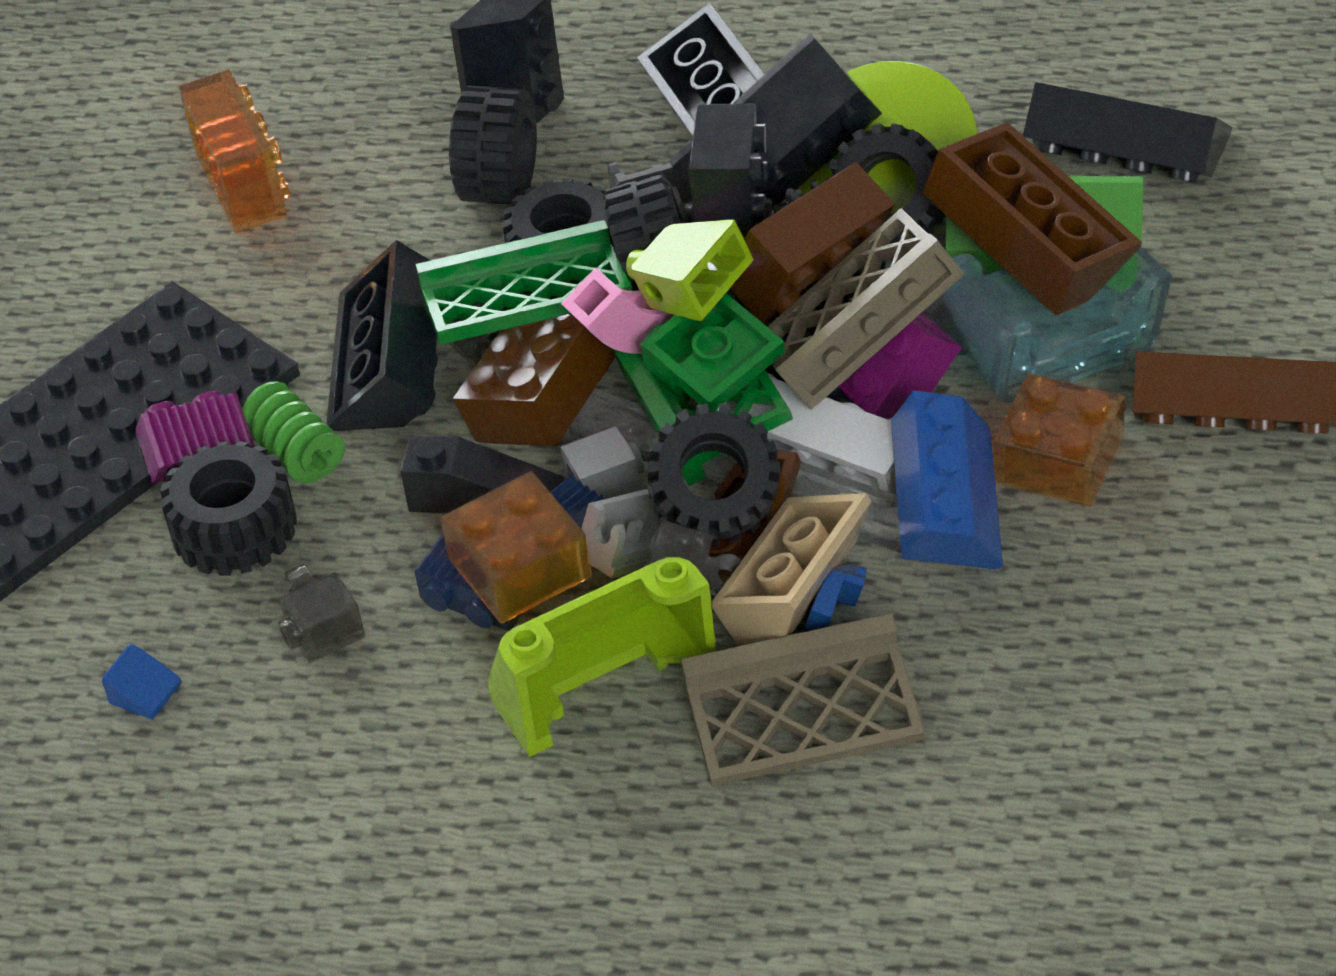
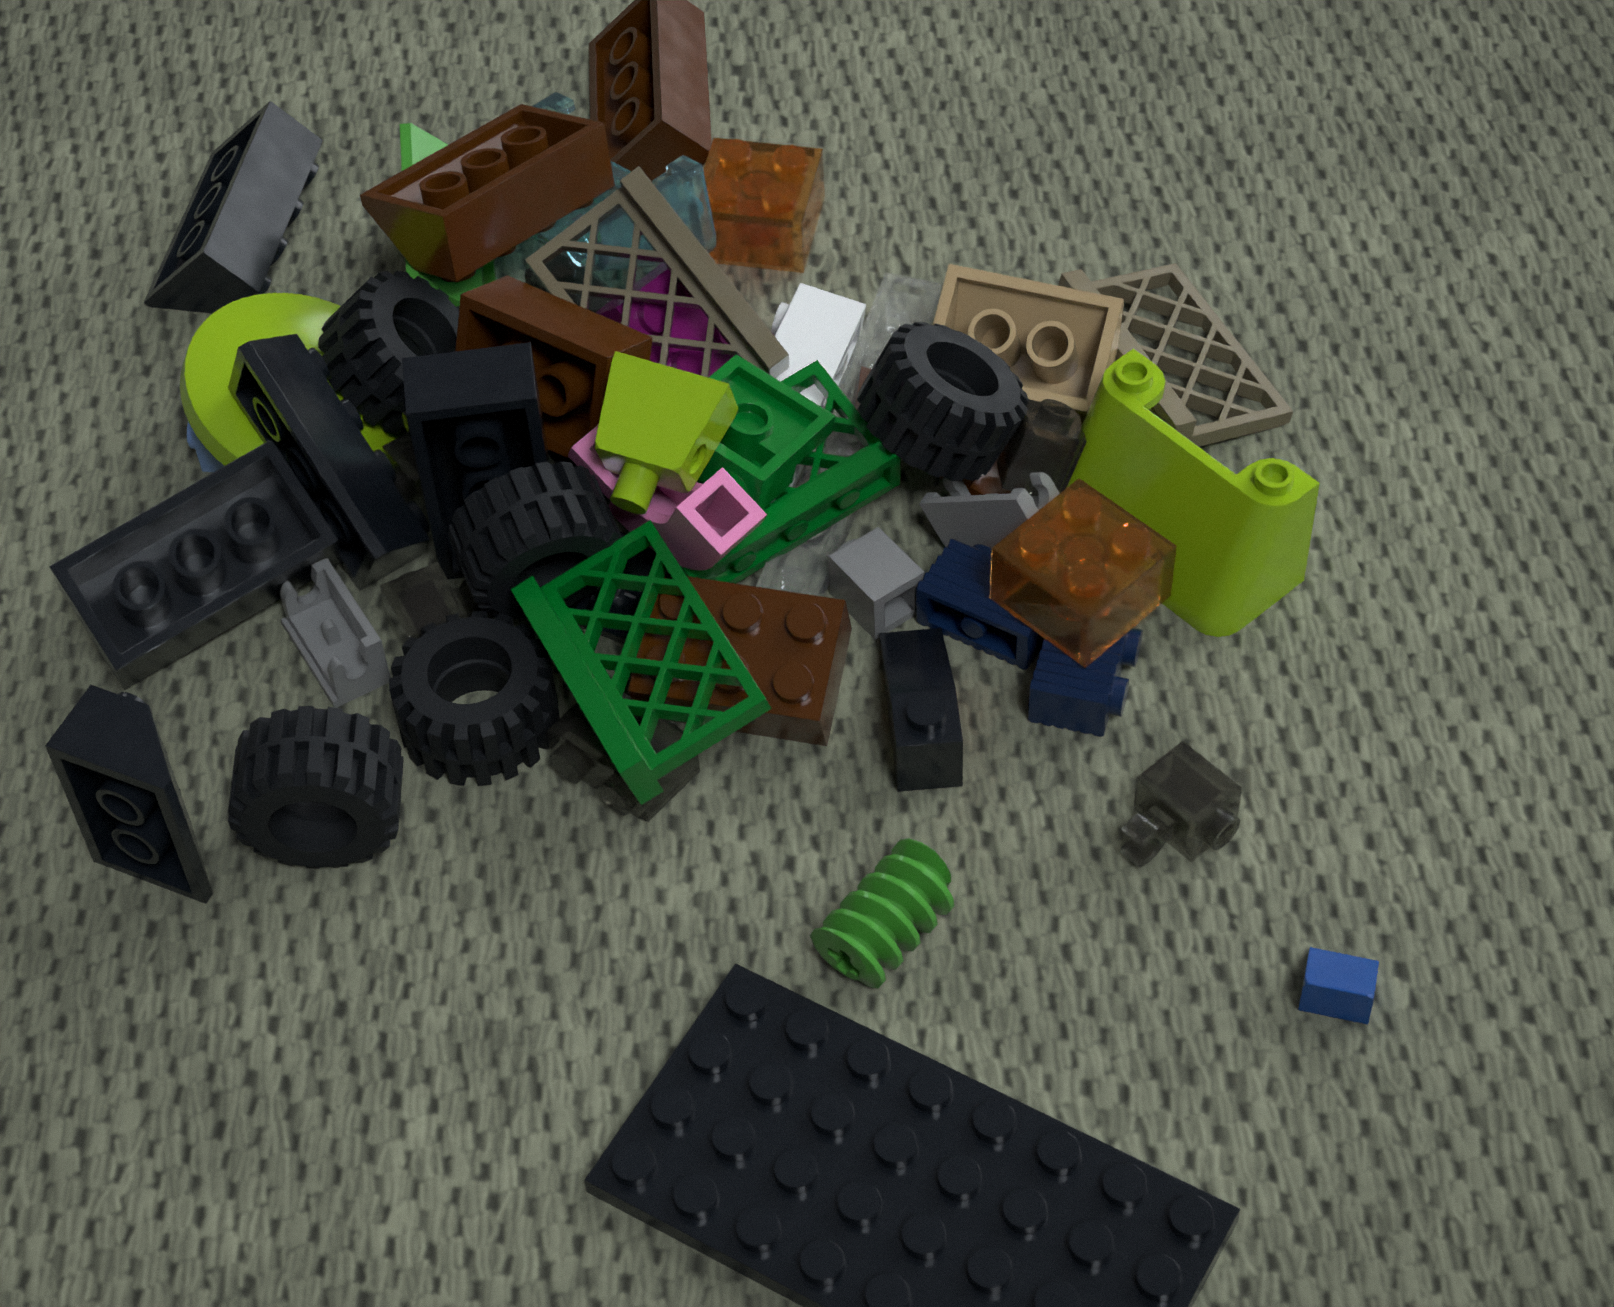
camera: 105 degrees left, 5 degrees up
(173, 431) = (932, 1016): magenta brick -> none
(228, 508) = (1037, 992): black tyre -> none
(235, 150) = (320, 1140): clear orange brick -> none
(383, 347) = (691, 866): black slope -> none
(945, 482) = (871, 246): blue slope -> none

